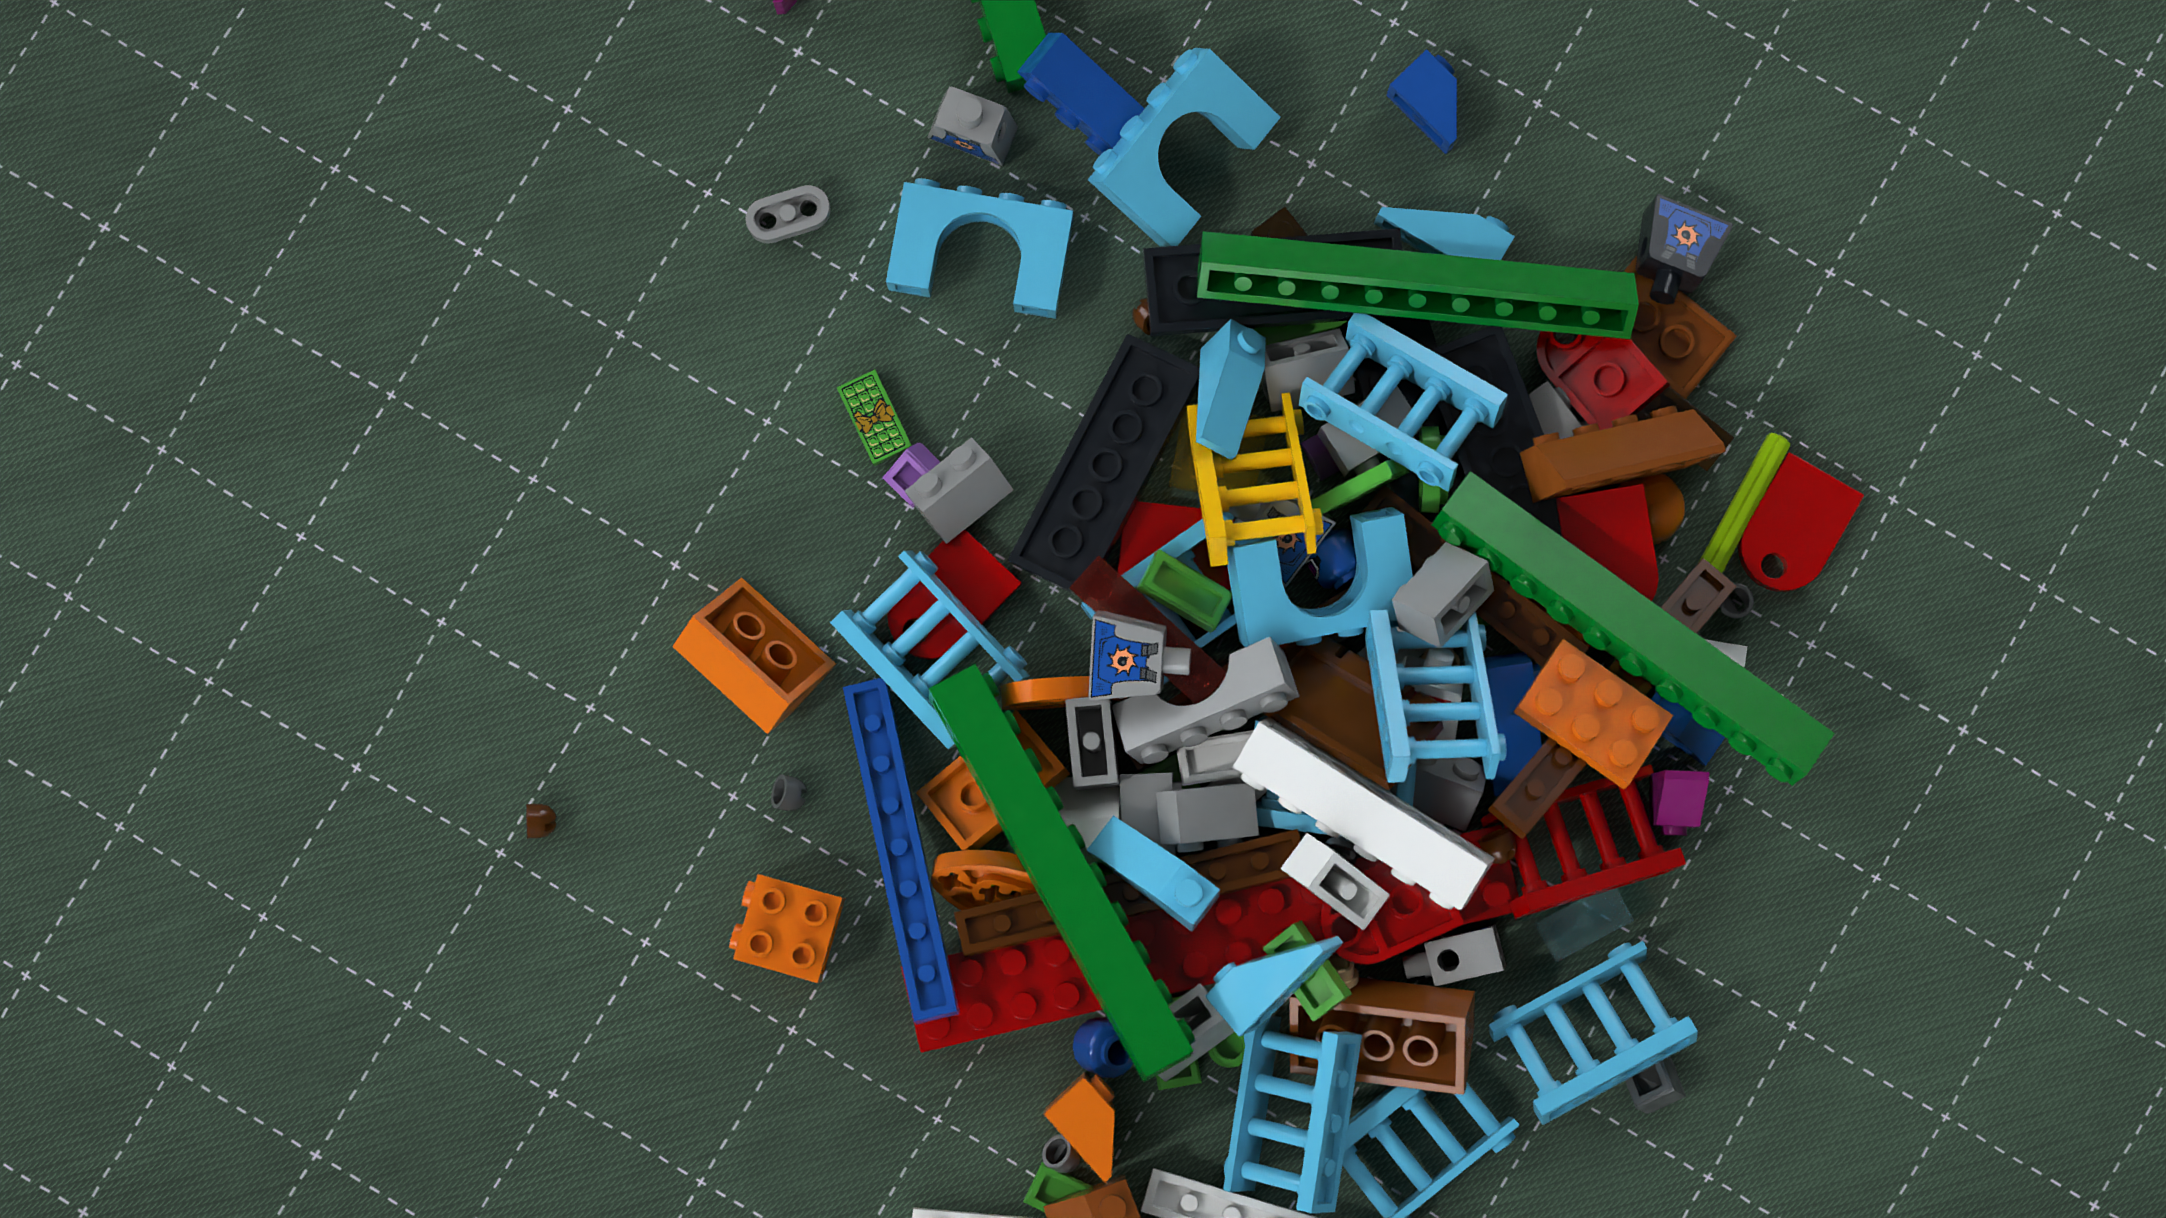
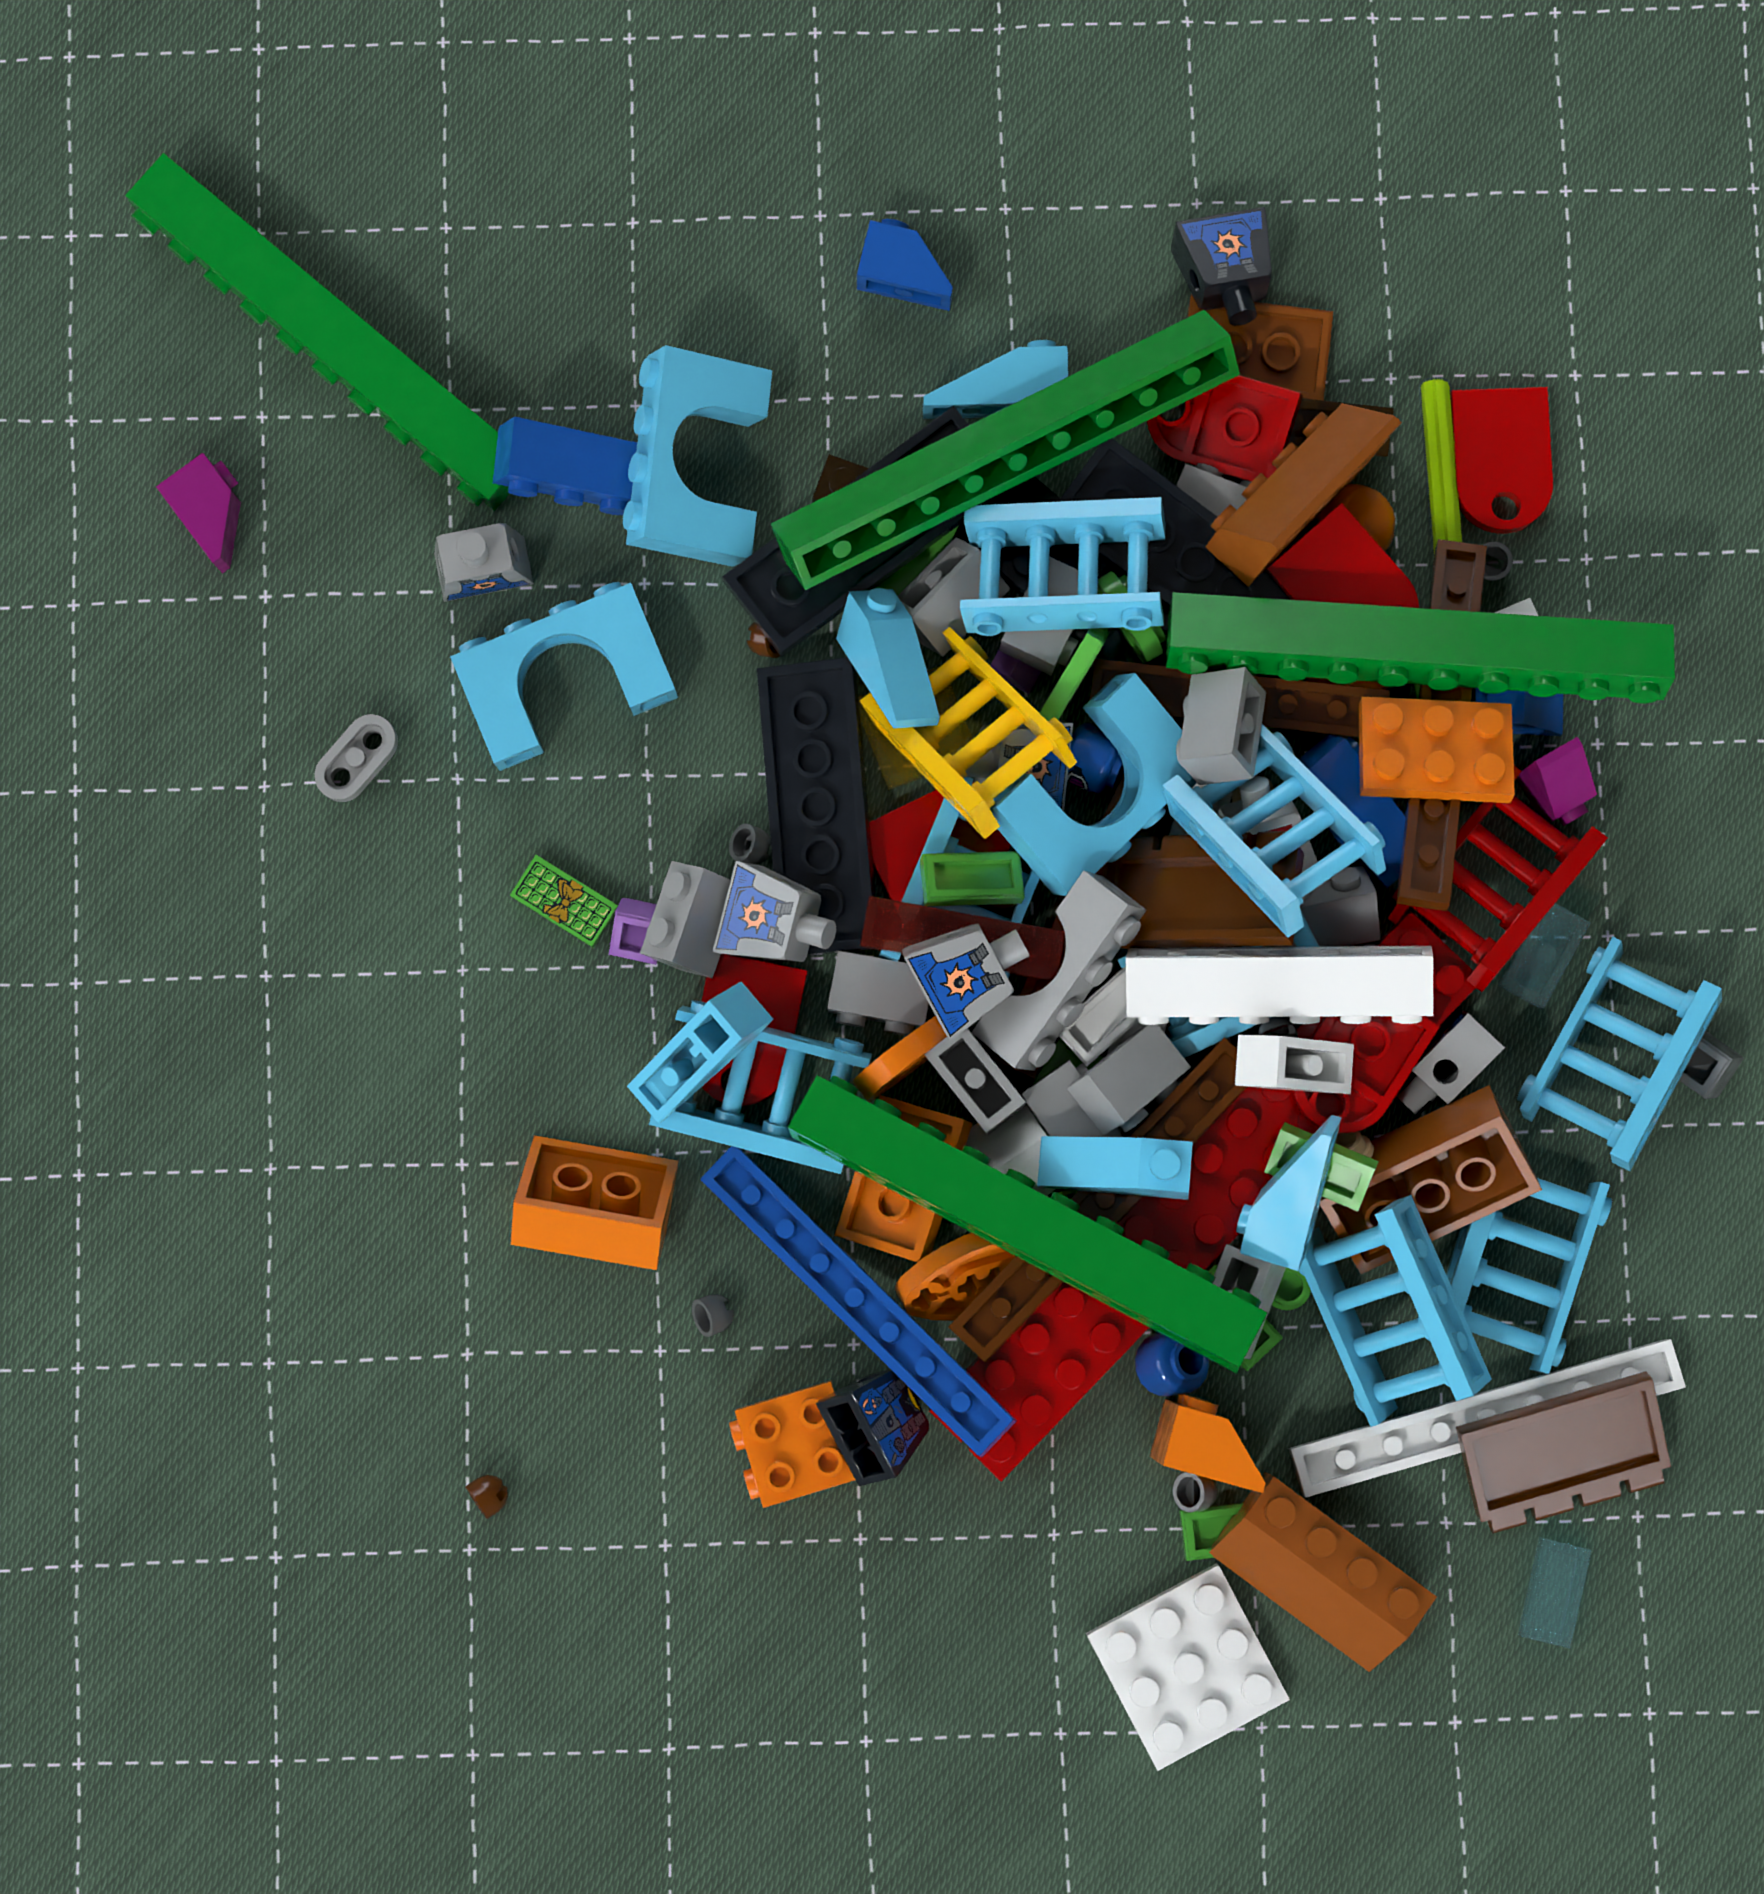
camera: 35 degrees left, 0 degrees up
(854, 951) = (875, 1425): none -> torso
(901, 591) = (700, 1050): none -> medium azure slope
(1018, 525) = (770, 917): none -> torso
(1038, 462) = (741, 840): none -> dark grey hinge
(1060, 629) = (878, 992): none -> light grey brick
(1499, 844) = (1424, 930): reddish brown hinge -> none

